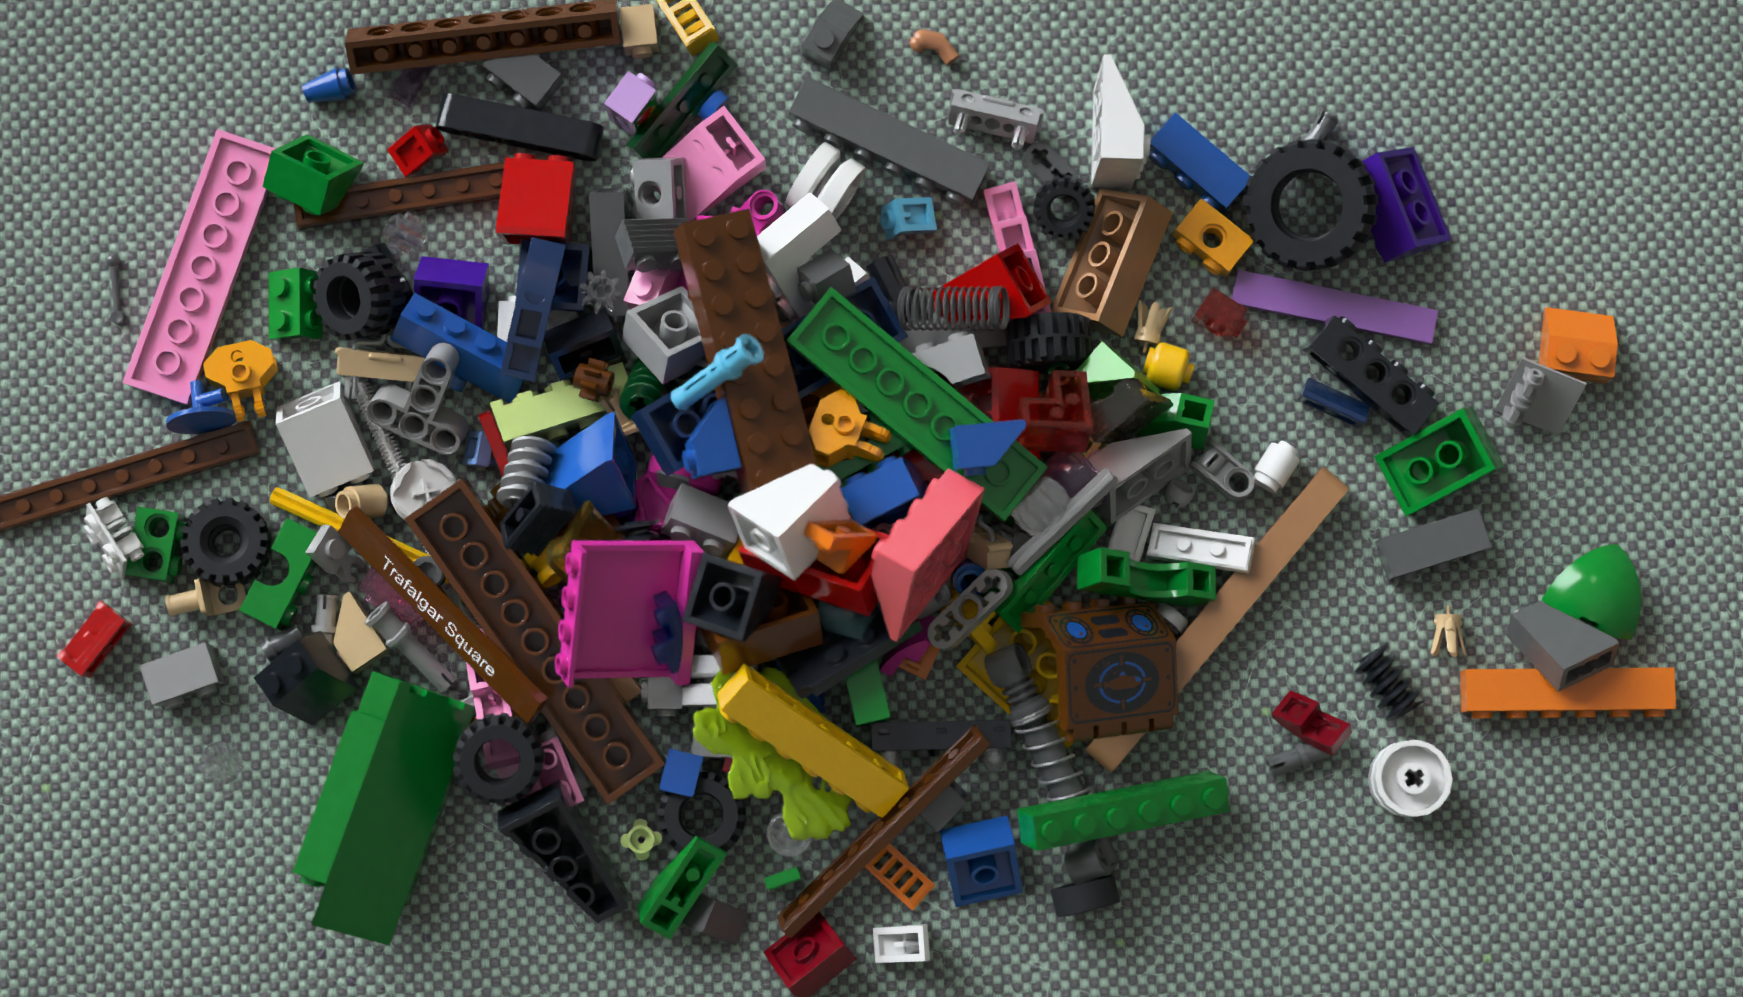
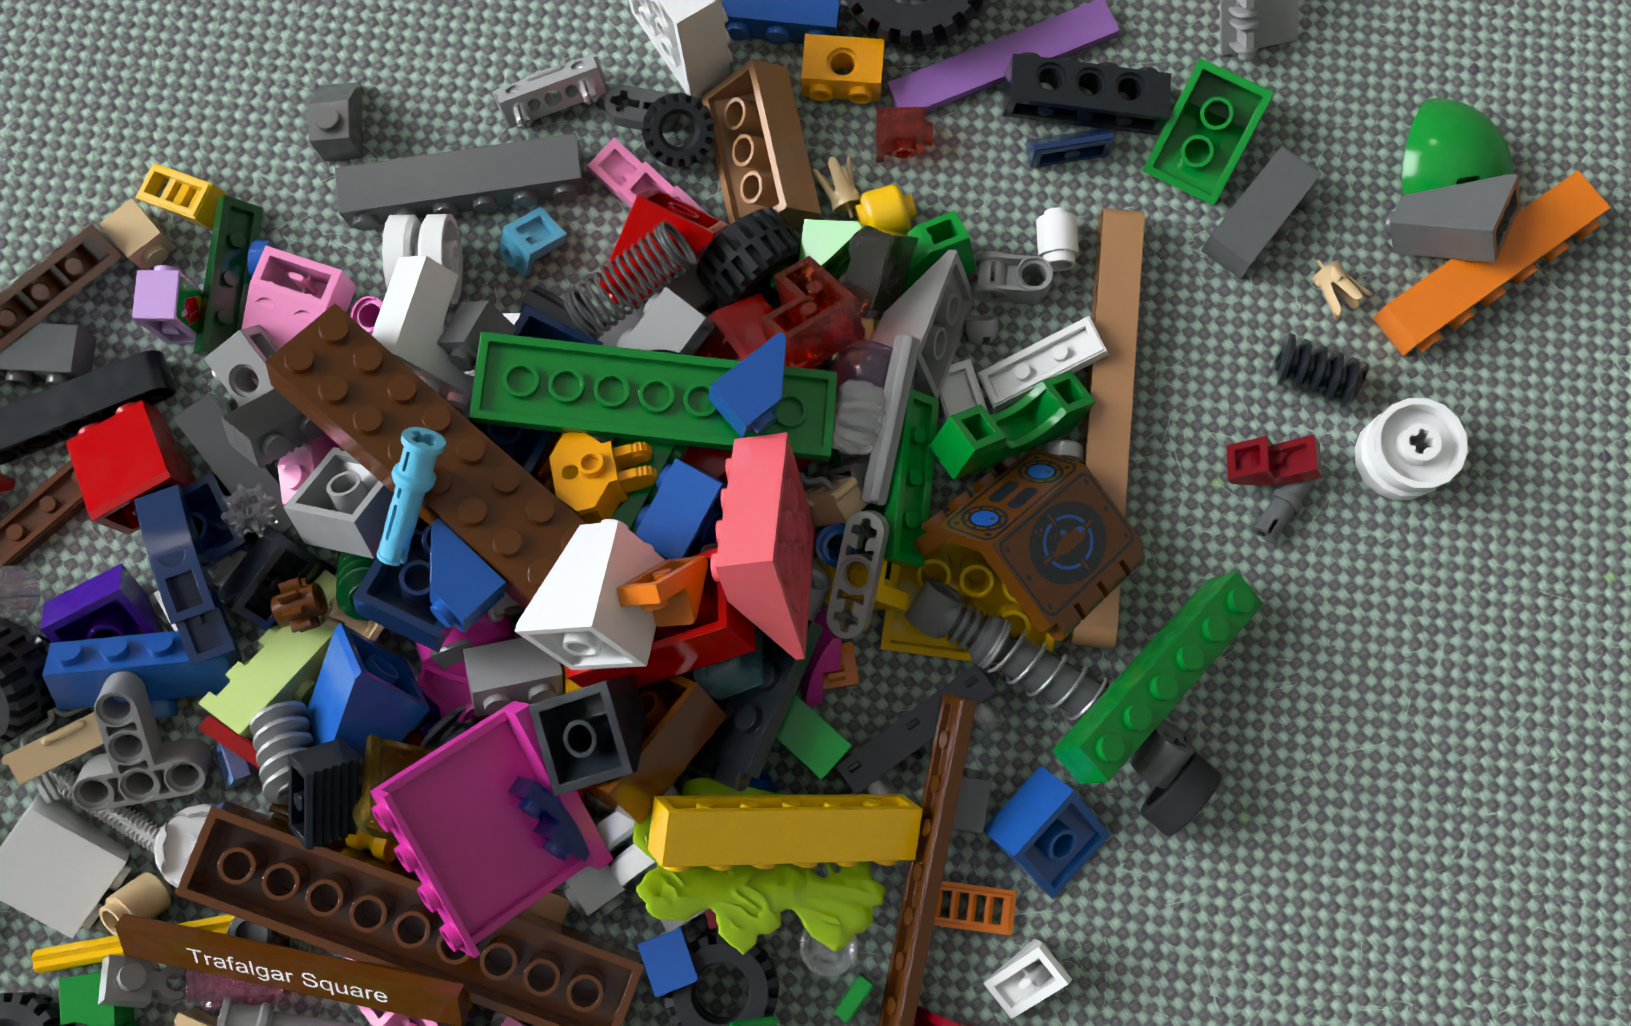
camera: 30 degrees left, 5 degrees down
(936, 41) = (448, 61): nougat arm -> none

